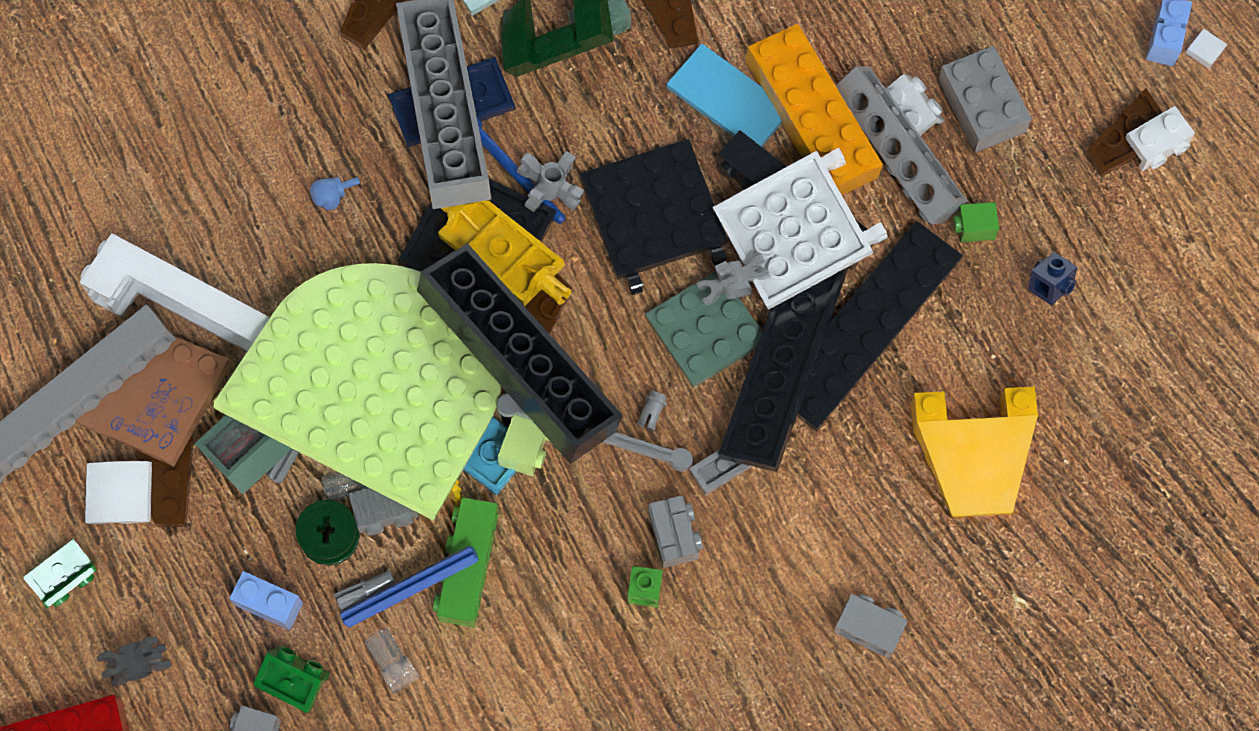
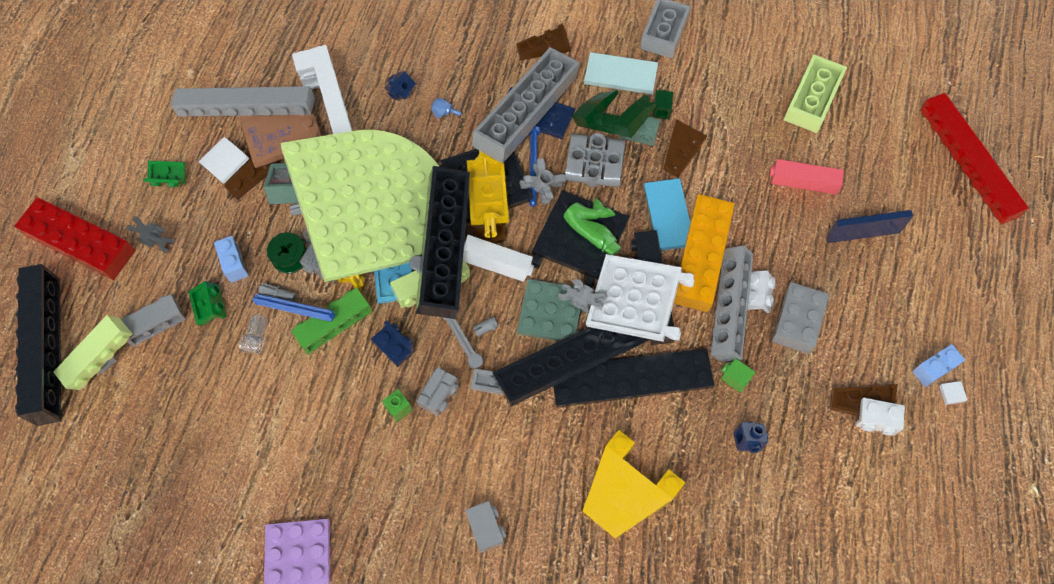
camera: 45 degrees right, 5 degrees down
(249, 207) = (399, 85): none -> dark blue brick
(565, 524) = (393, 344): none -> dark blue bracket
(589, 76) = (579, 148): none -> light grey connector
(595, 317) = (497, 258): none -> white brick
(673, 192) = (599, 235): none -> bright green piece

